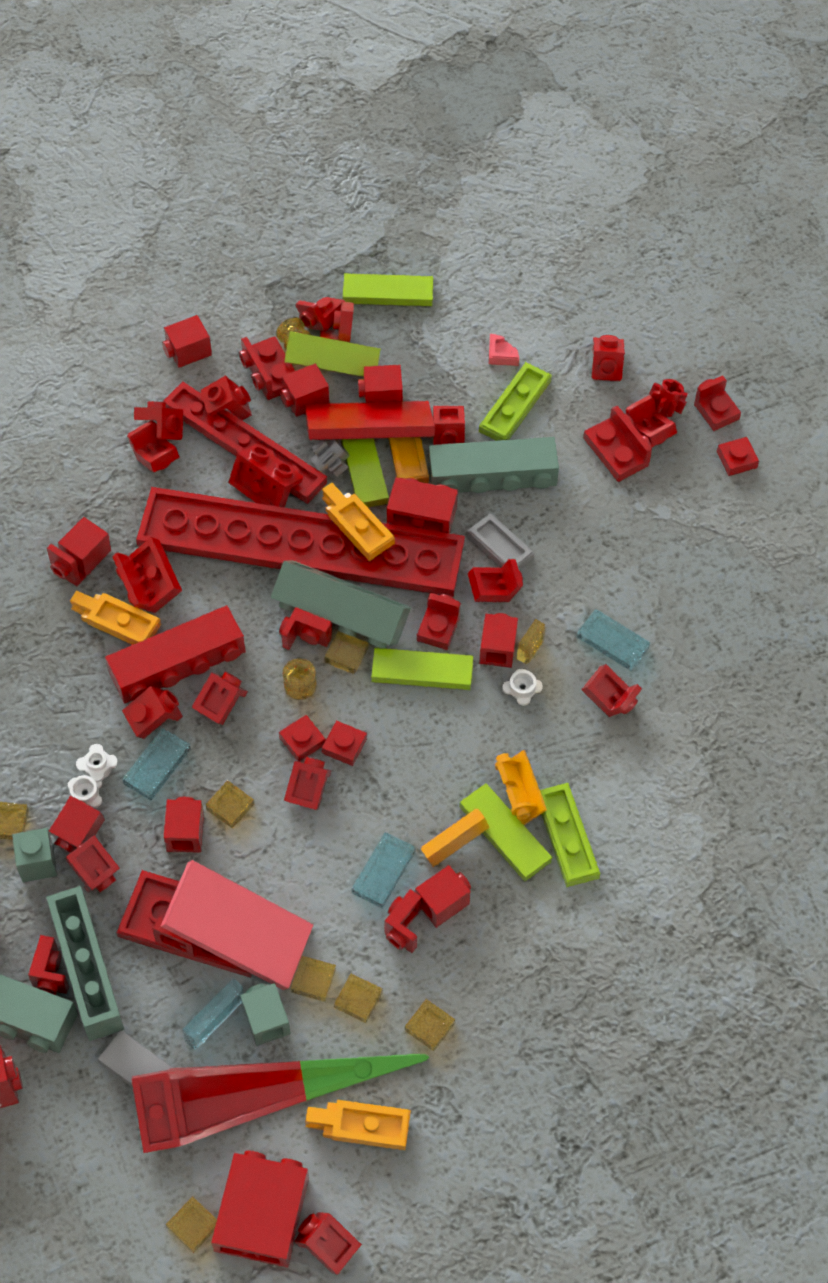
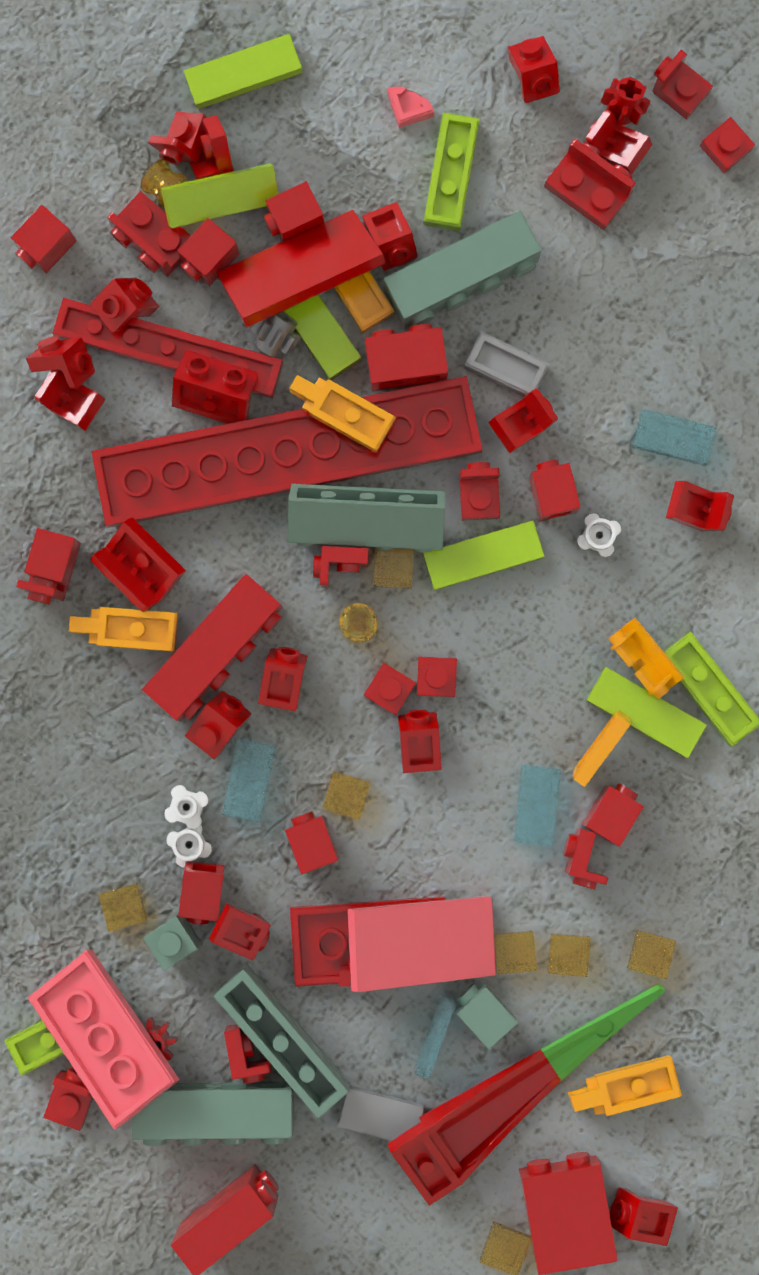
camera: 15 degrees left, 25 degrees up
(531, 641) = (590, 479): clear yellow tile -> none

